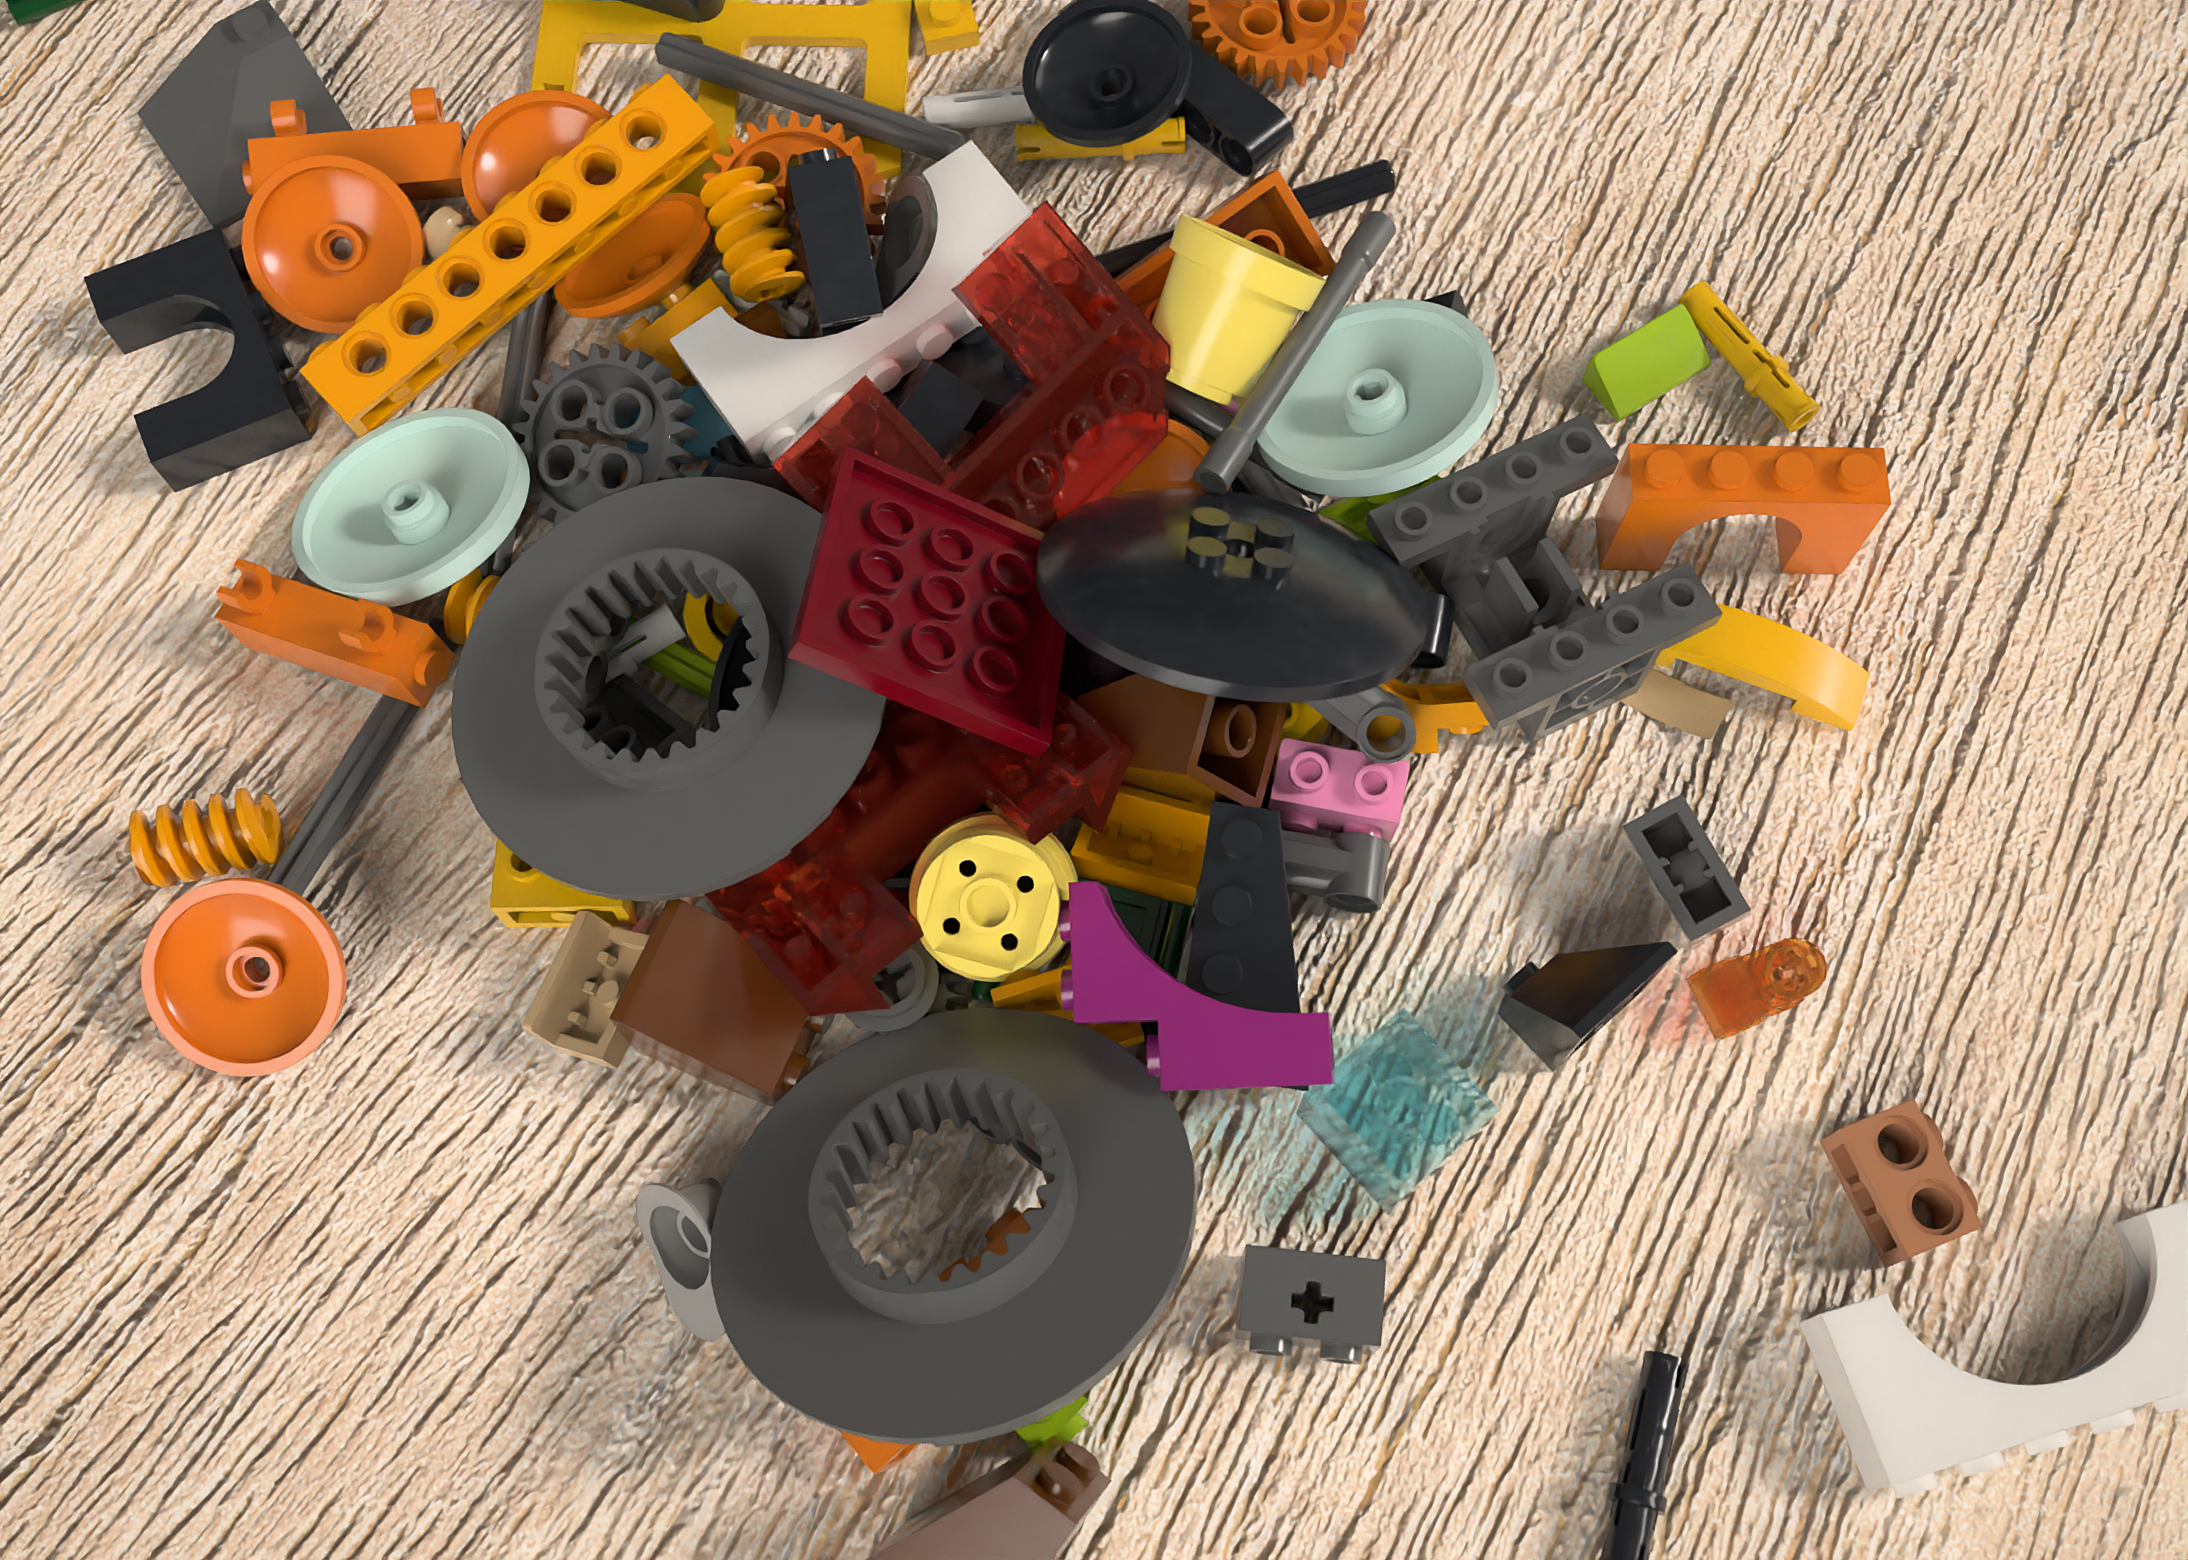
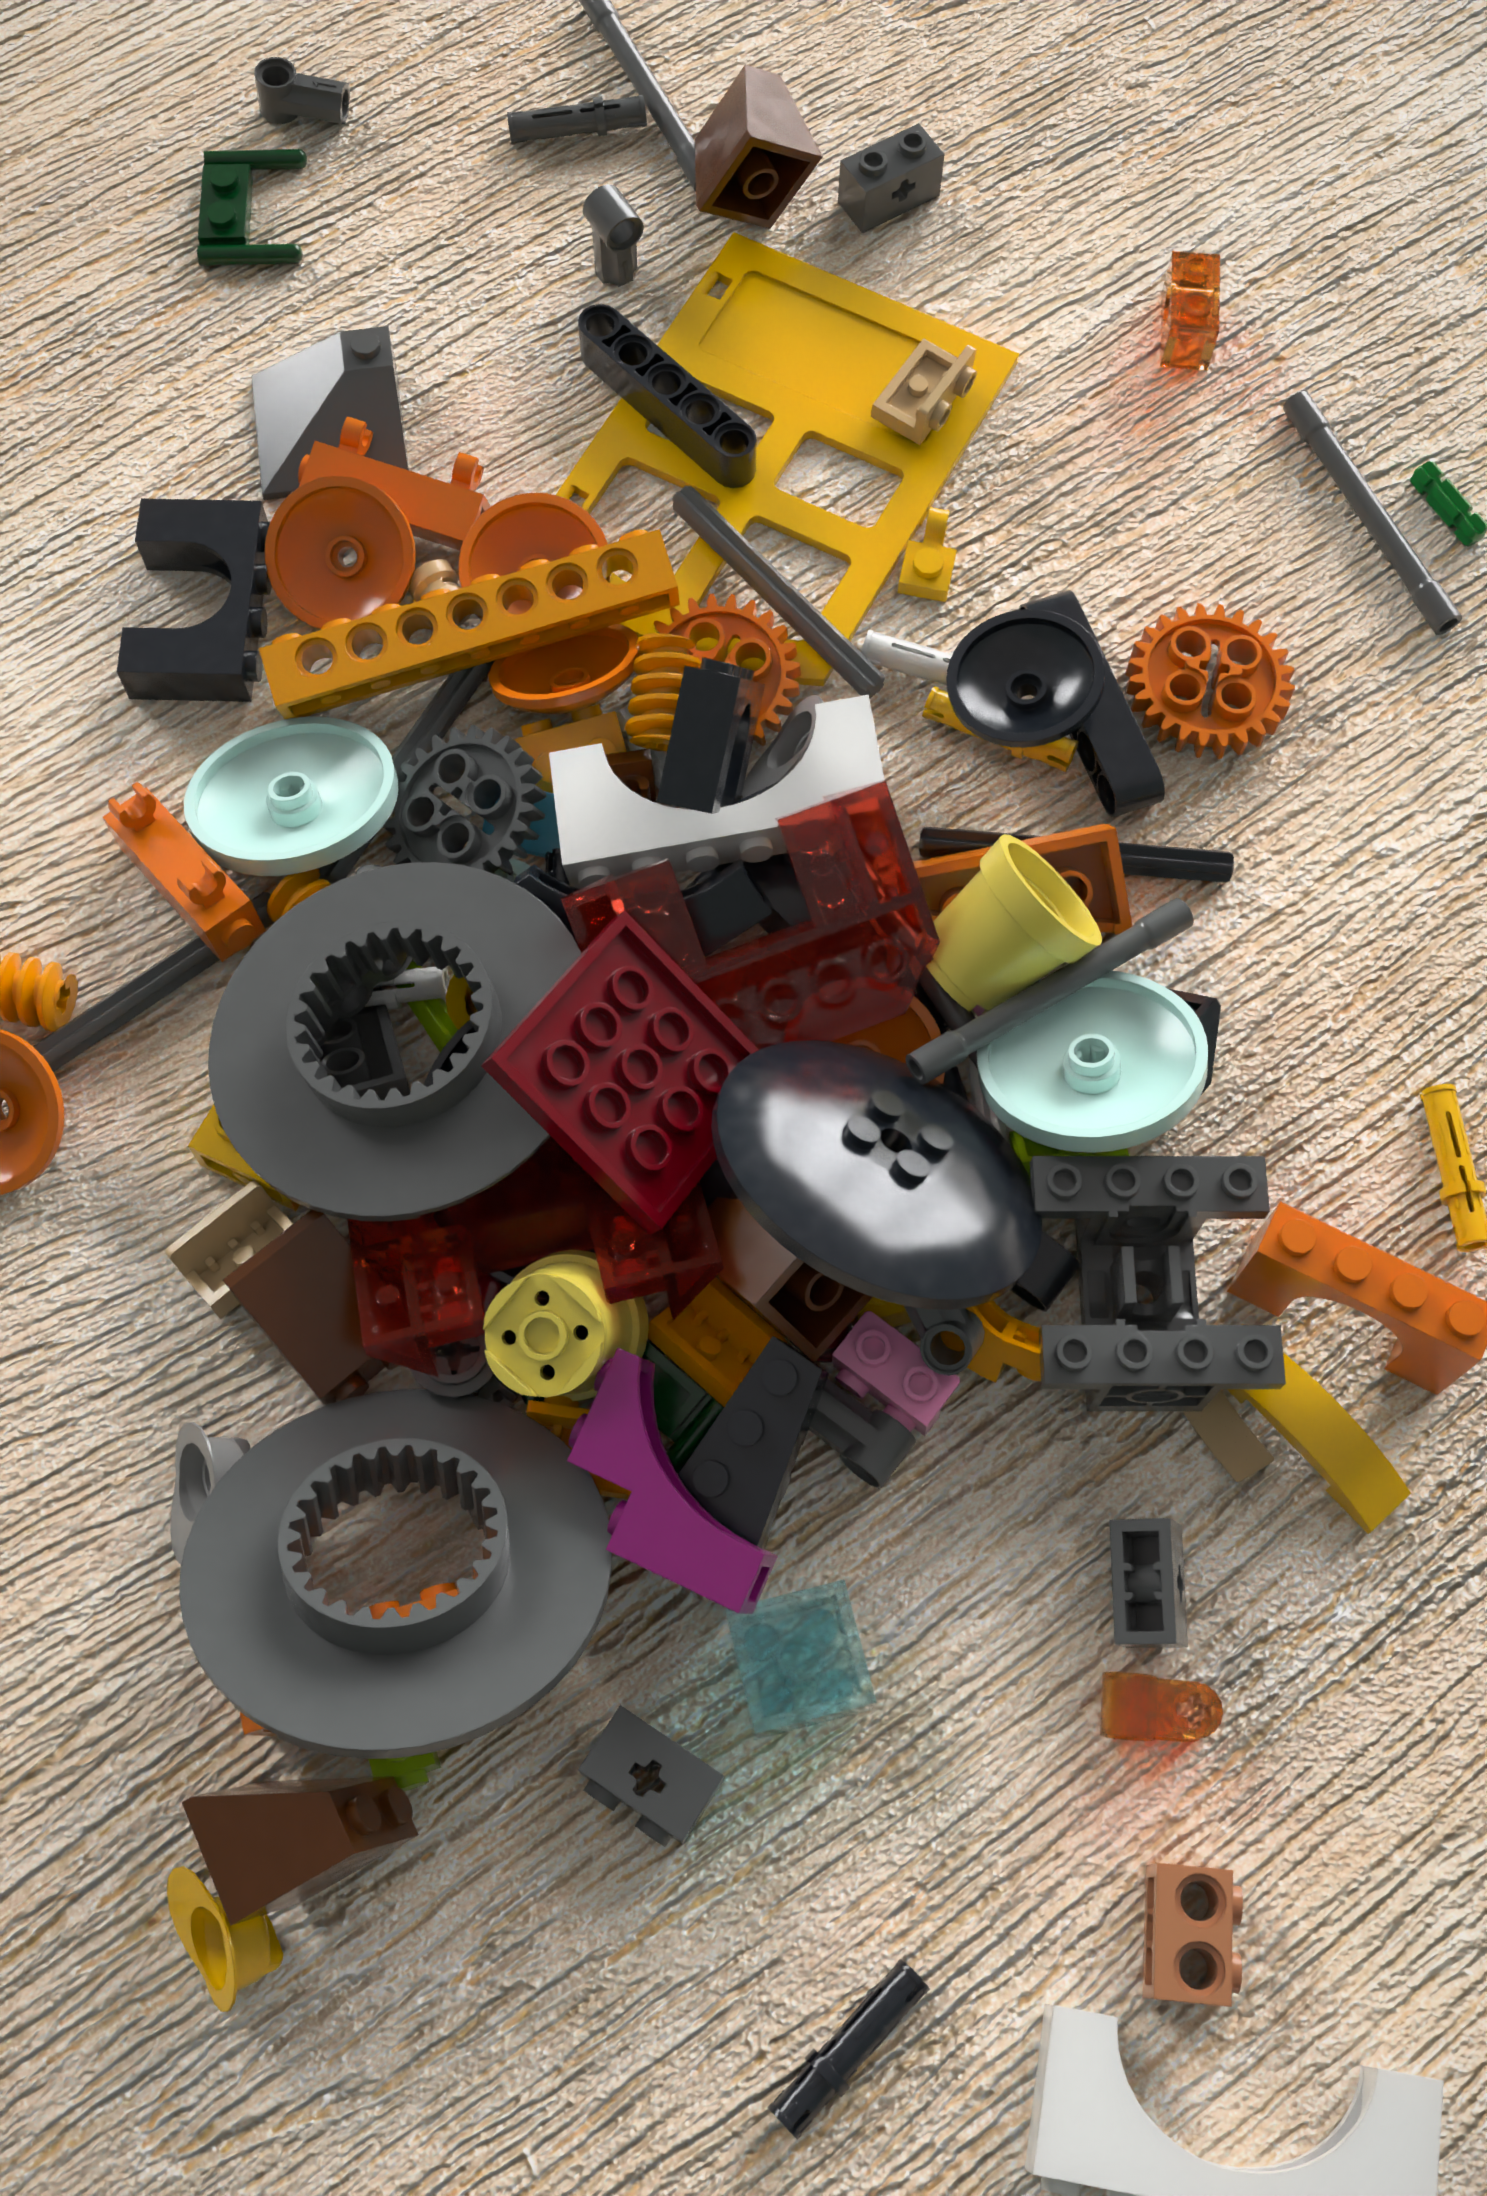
camera: 25 degrees right, 0 degrees up
(1578, 995) = (1000, 1642): black slope -> none
(1647, 363) = (1364, 1133): lime slope -> none

